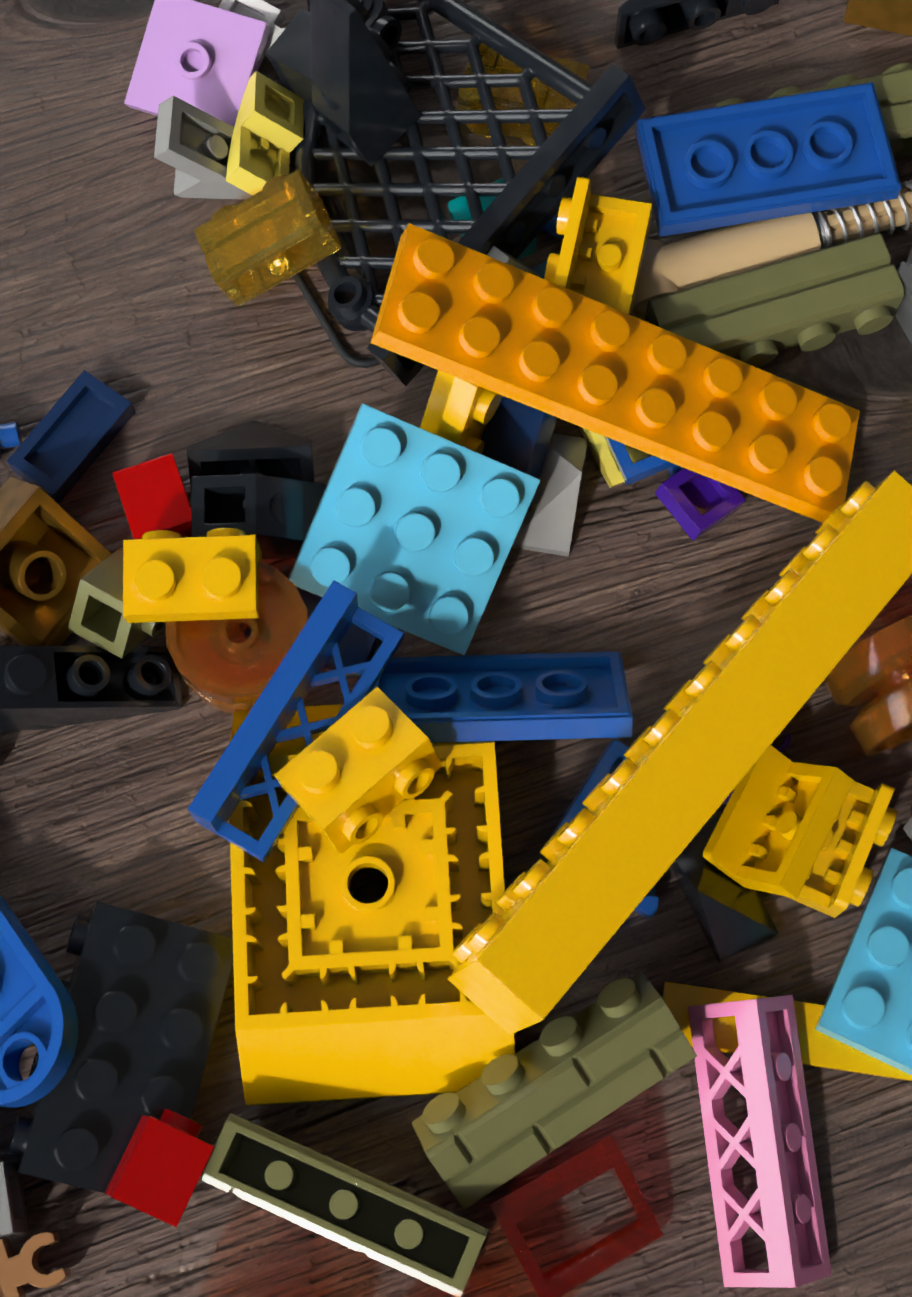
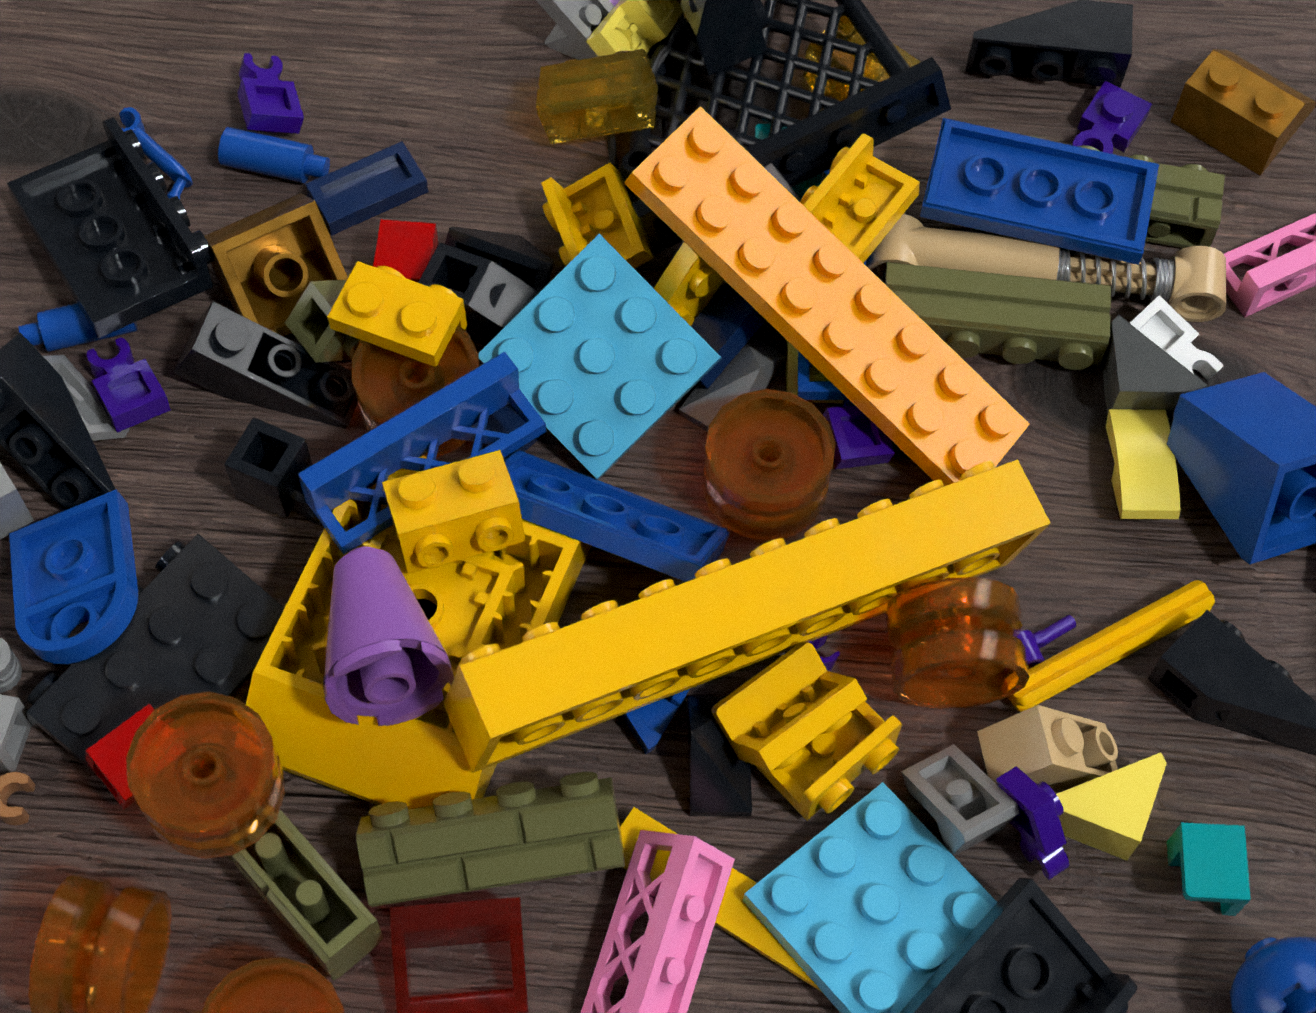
camera: 20 degrees right, 10 degrees down
(142, 795) = (267, 467): none -> black brick
(218, 1150) = (206, 774): none -> clear orange wheel
(330, 376) = (593, 207): none -> yellow bracket
(356, 946) = (380, 644): none -> medium lavender cone
(641, 534) = (767, 464): none -> clear orange wheel
(788, 47) = (1111, 119): none -> dark purple plate

